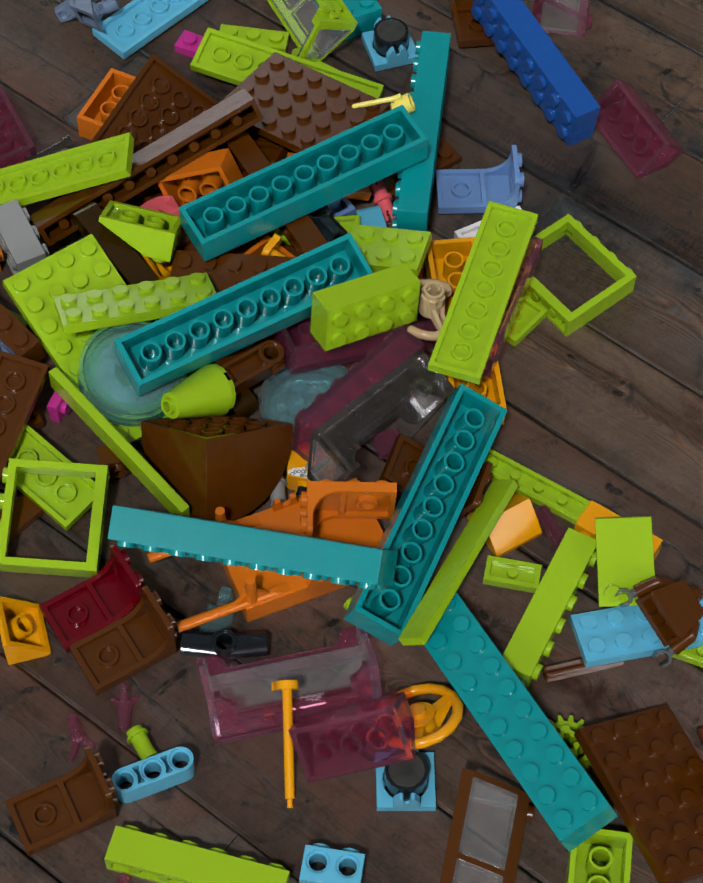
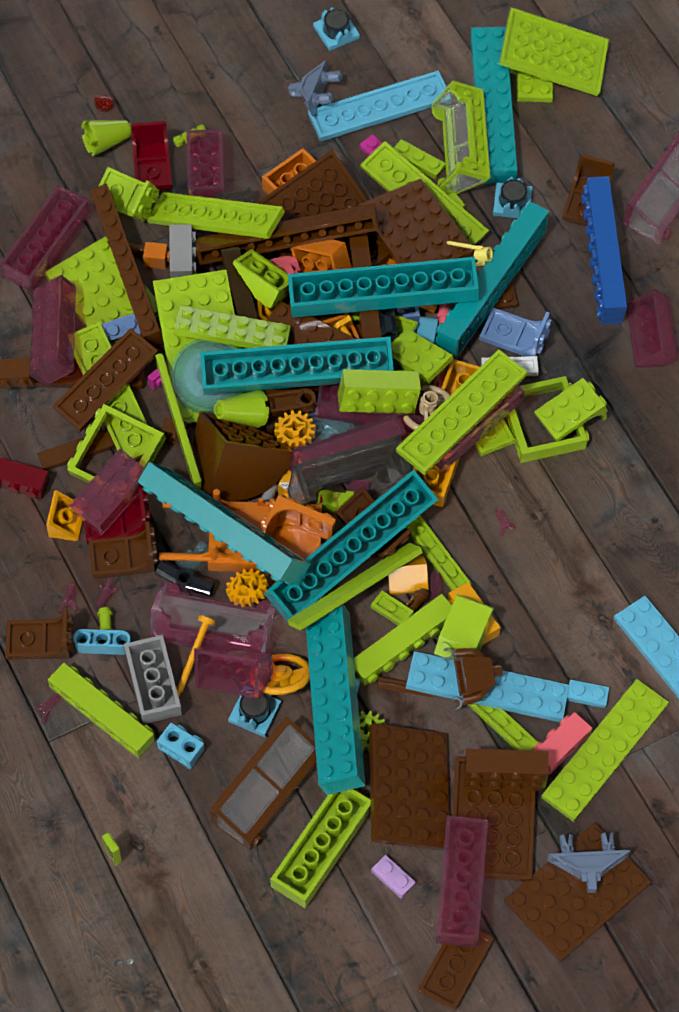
camera: 25 degrees right, 5 degrees up
(71, 569) = (109, 492): none -> clear pink brick
(250, 796) = (152, 679): none -> light grey brick
(275, 397) = (304, 429): none -> light orange gear
(313, 622) = (247, 587): none -> light orange gear
(371, 466) = (332, 500): none -> lime leg
(538, 544) = (416, 601): none -> reddish brown pin
(587, 412) = (503, 521): none -> clear pink bar
(600, 247) = (571, 409): none -> lime bracket

